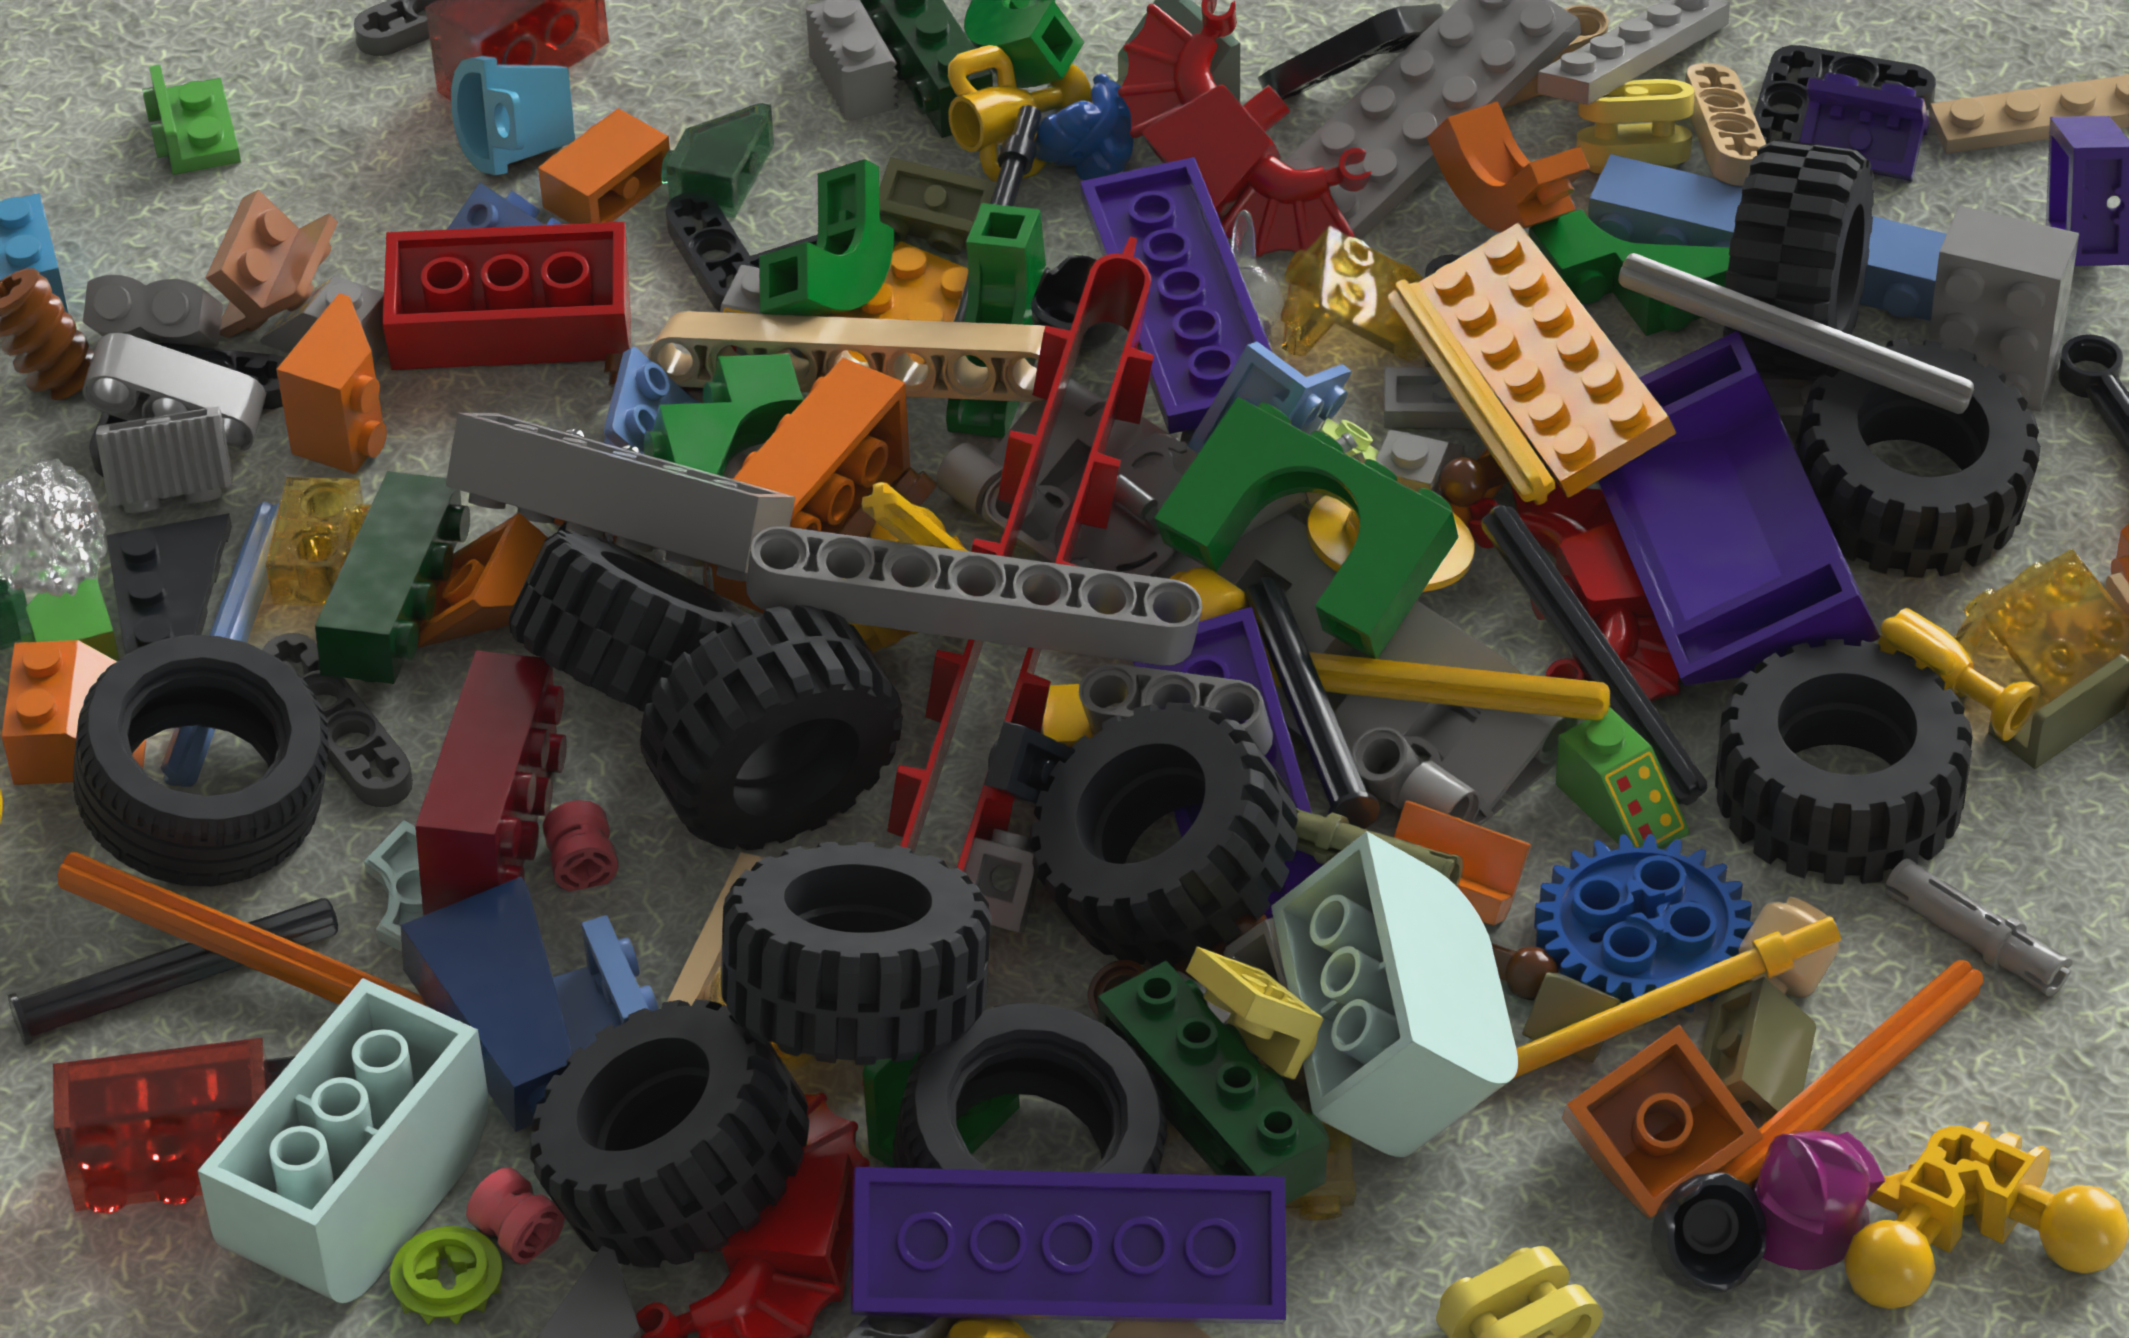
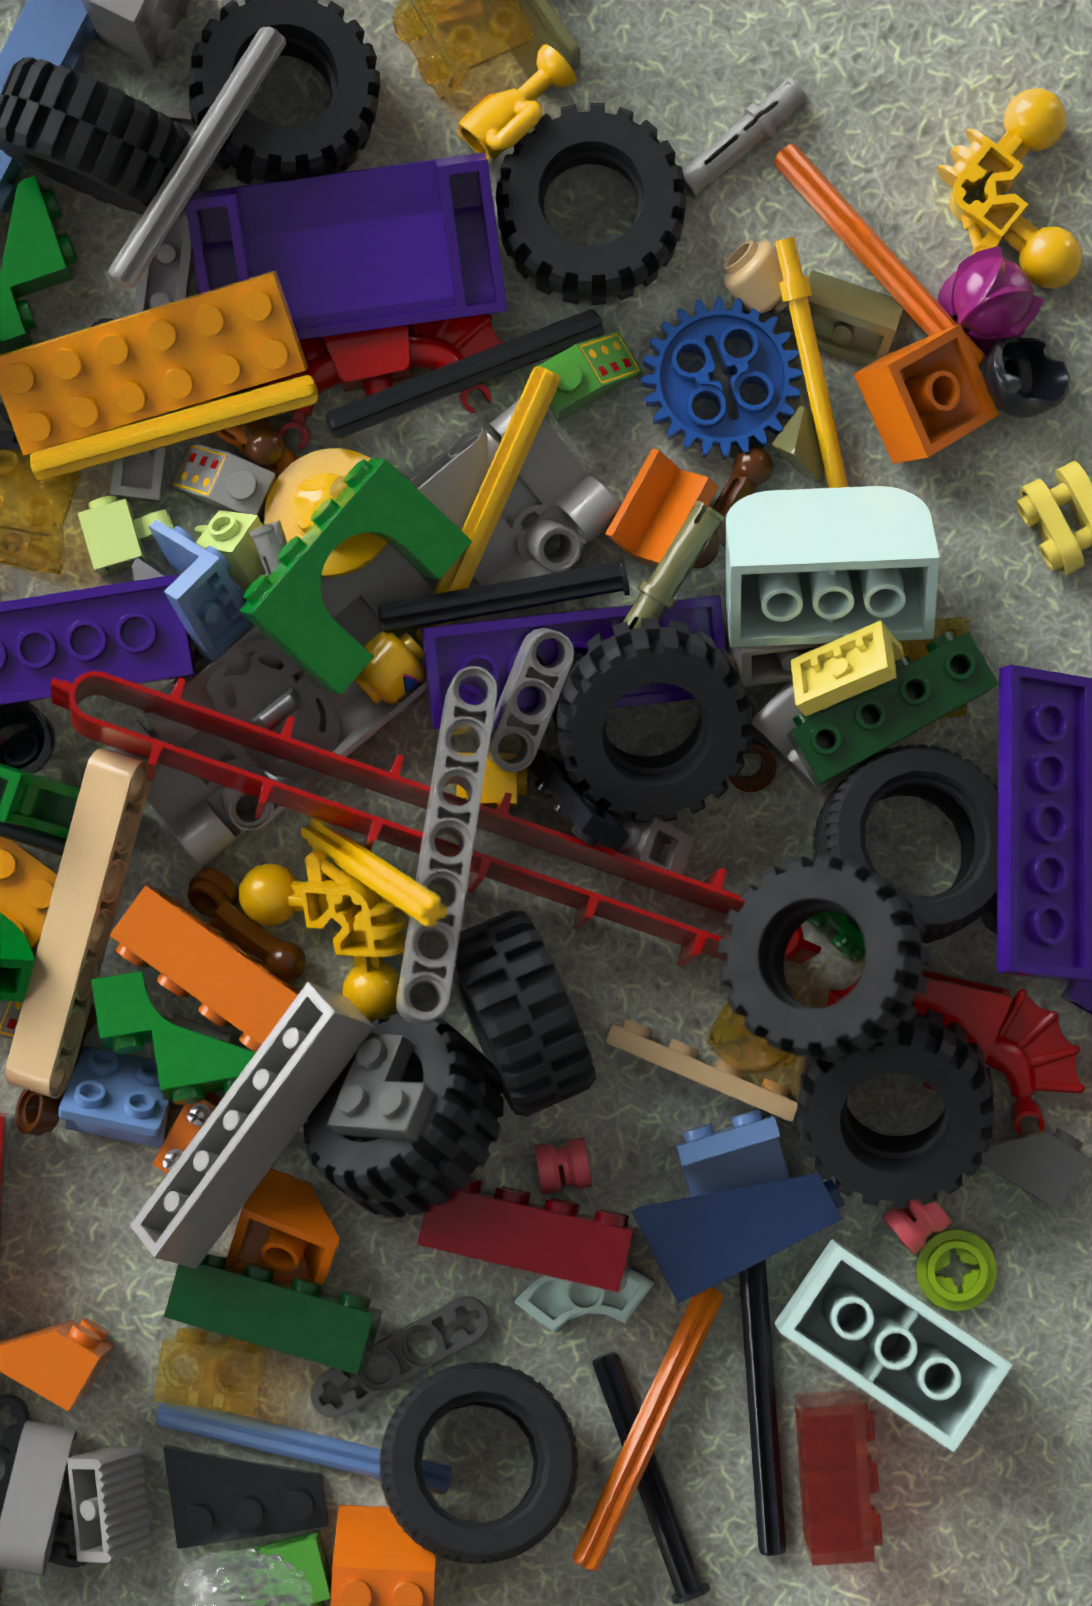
camera: 80 degrees left, 40 degrees up
(646, 561) = (375, 1099): none -> dark grey plate
(1350, 351) = (115, 535): none -> yellowish green brick

